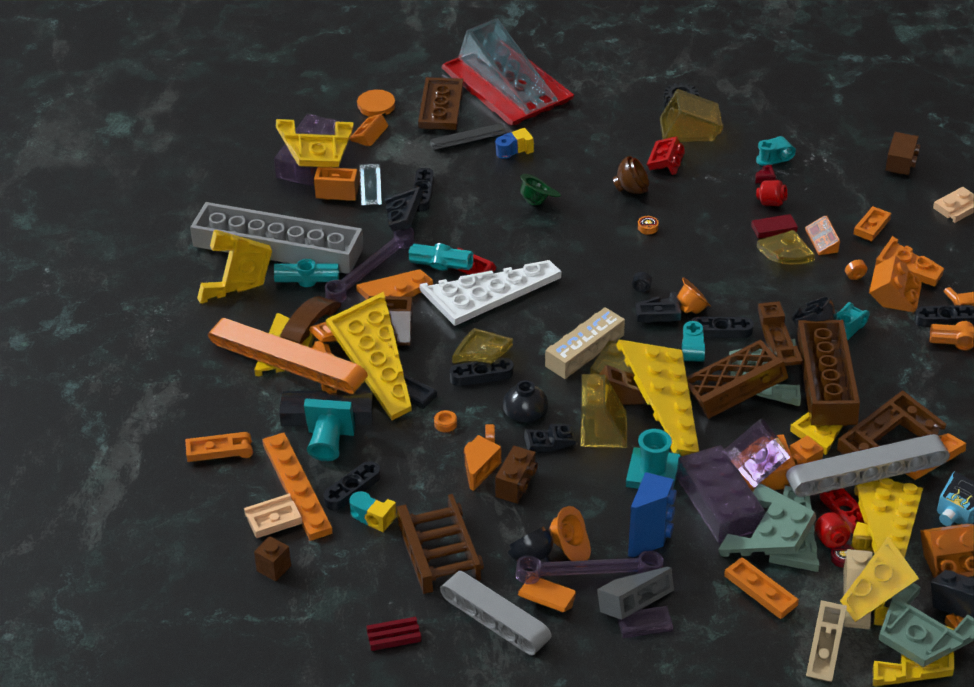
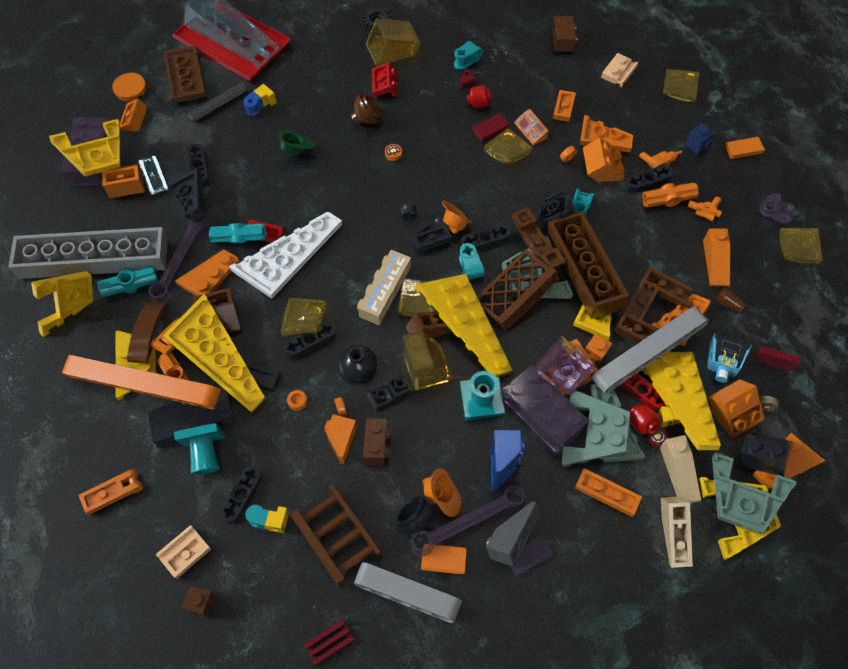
camera: 20 degrees left, 20 degrees up
(296, 483) = (194, 510): orange plate -> none
(879, 581) = (705, 469): yellow wing -> none

